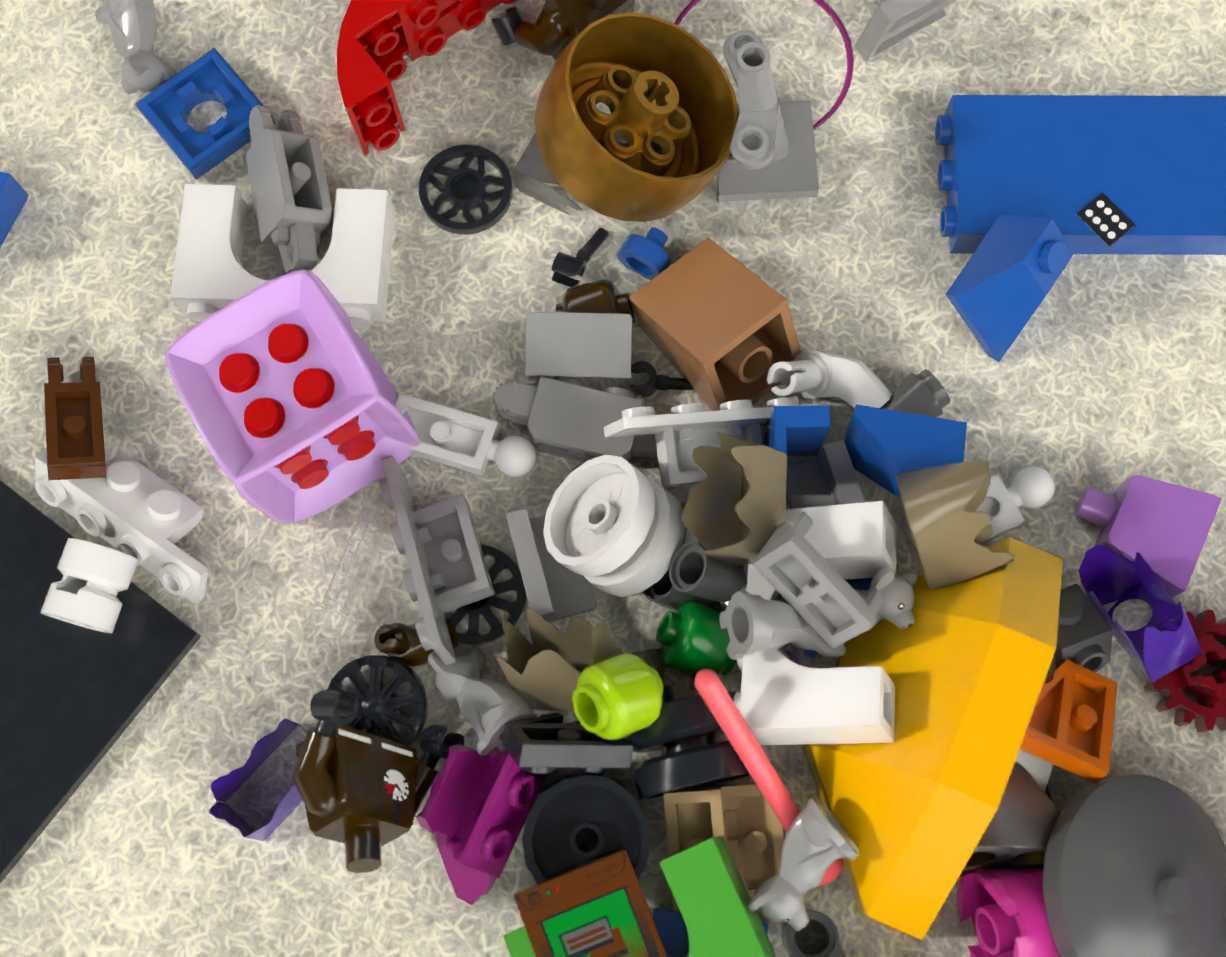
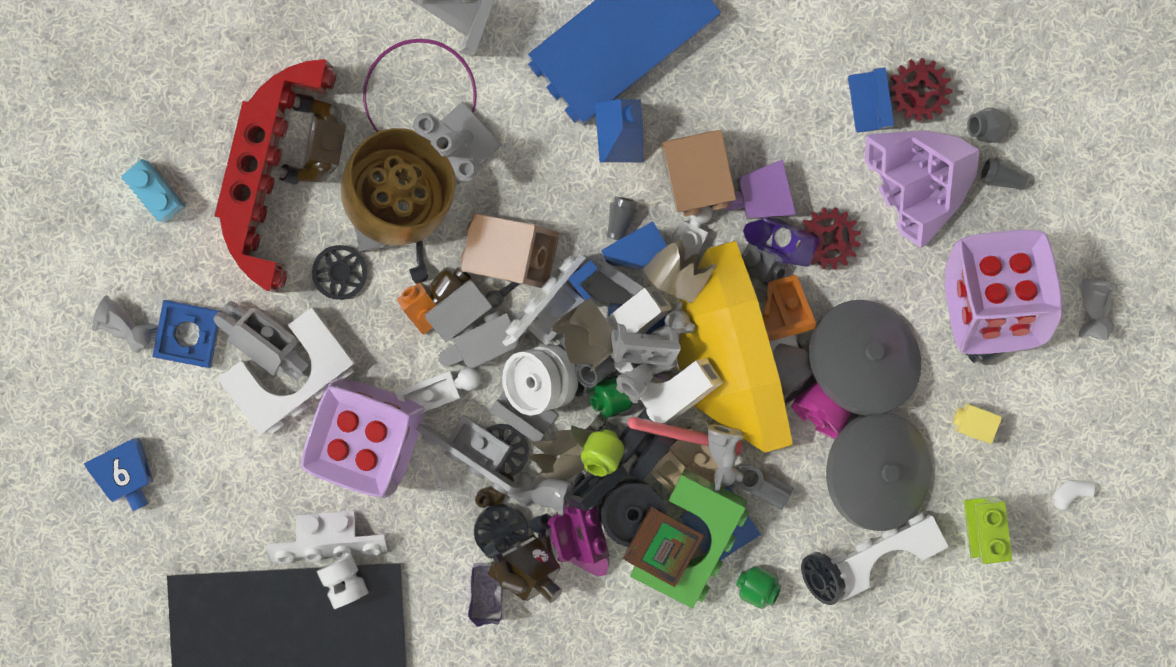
camera: 45 degrees left, 15 degrees up
(74, 423) = (268, 521): reddish brown hinge -> none
(527, 294) = (415, 304): none -> orange bracket
(645, 254) = (449, 239): blue tile -> none
(827, 376) = (576, 232): white arm -> none
(1084, 414) = (698, 172): none -> medium nougat slope
(1106, 219) = (642, 64): black sticker -> none

